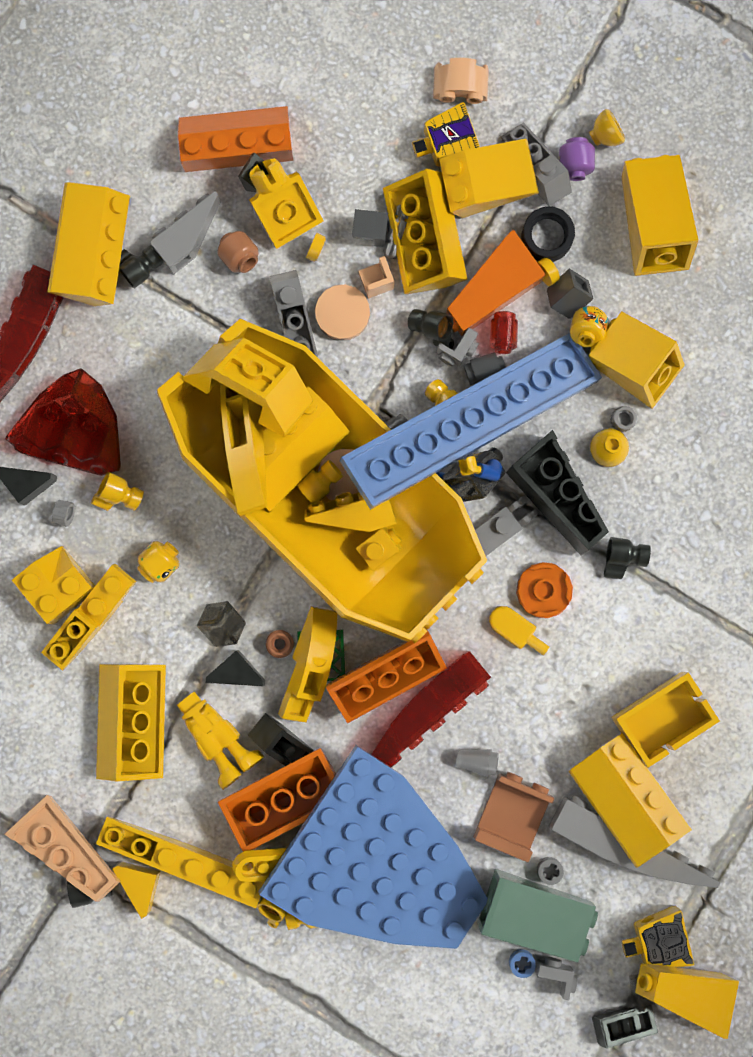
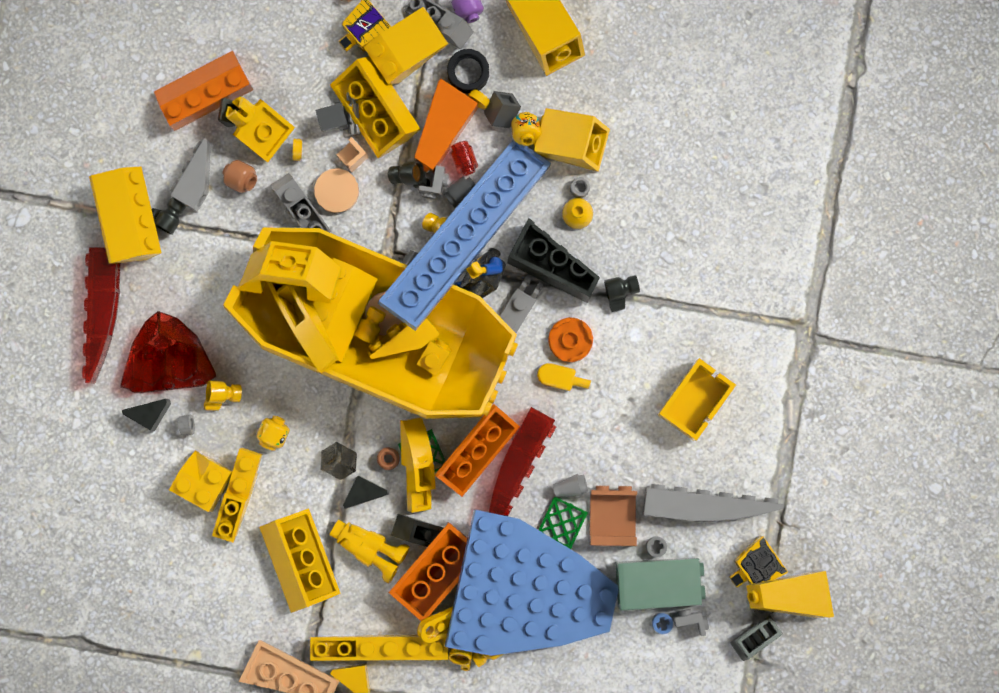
camera: 15 degrees left, 0 degrees up
(467, 783) = (569, 506): none -> green window
(629, 800) = (692, 470): yellow slope -> none

